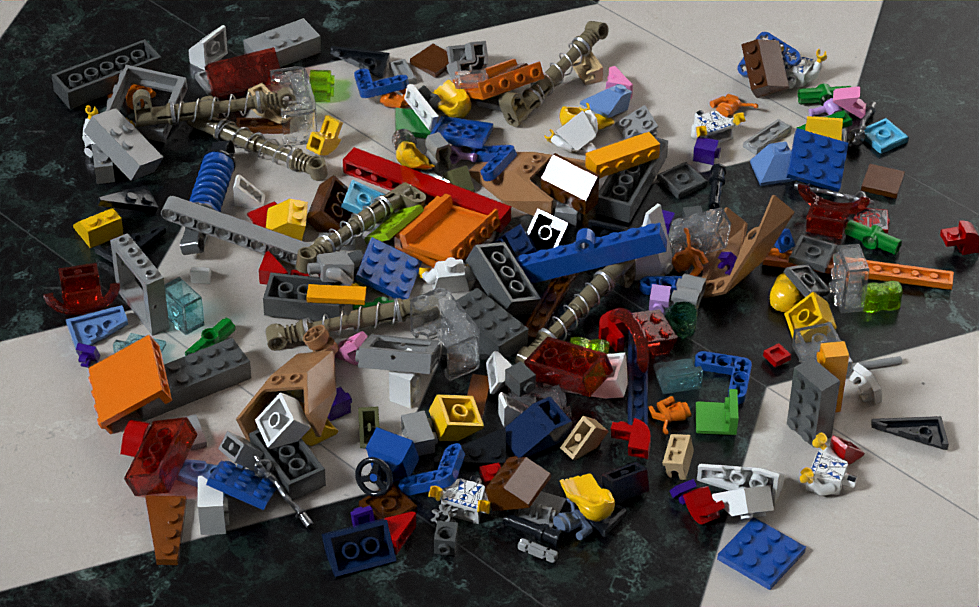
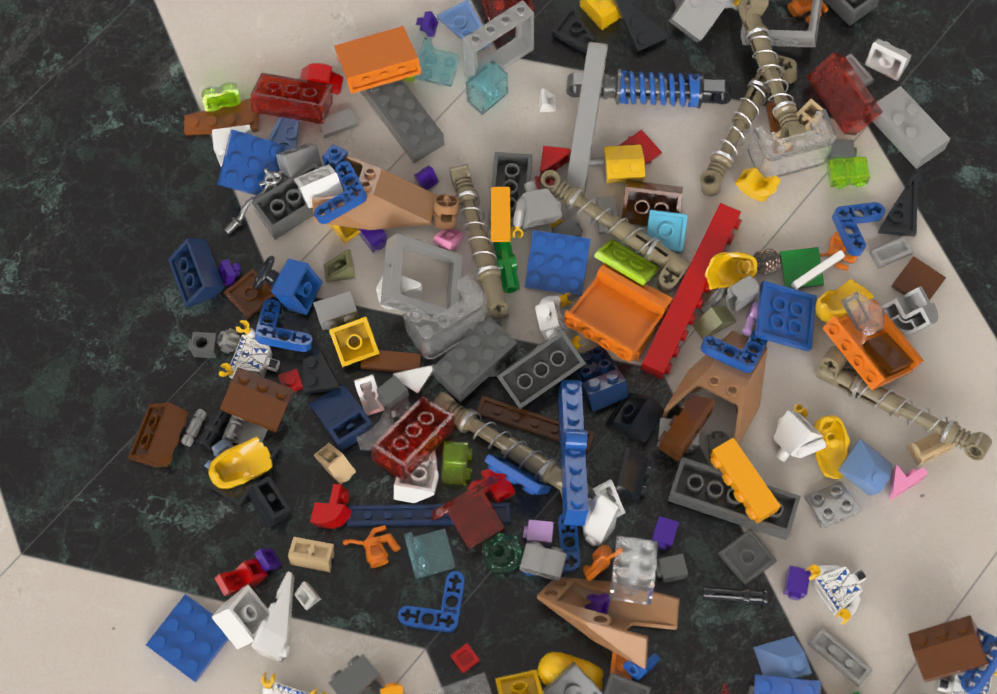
camera: 90 degrees right, 25 degrees up
(142, 521) = (217, 97): none -> clear neon green brick
(212, 336) = (459, 125): green piece -> none
(246, 194) = (663, 124): white slope -> none
(248, 413) = (334, 156): none -> blue bracket
(273, 362) = (426, 178): none -> dark purple tile
(309, 384) = (348, 196): none -> blue beam
(401, 528) = (212, 303): red slope -> none
(431, 98) = (839, 279): dark grey bracket -> none
(545, 577) = (158, 434): none -> reddish brown slope
(608, 297) = (517, 475): none -> blue plate
(718, 417) = (370, 594): bright green bracket -> none
(718, 458) = (306, 595): none -> white slope
(729, 105) = (887, 612): orange piece -> none

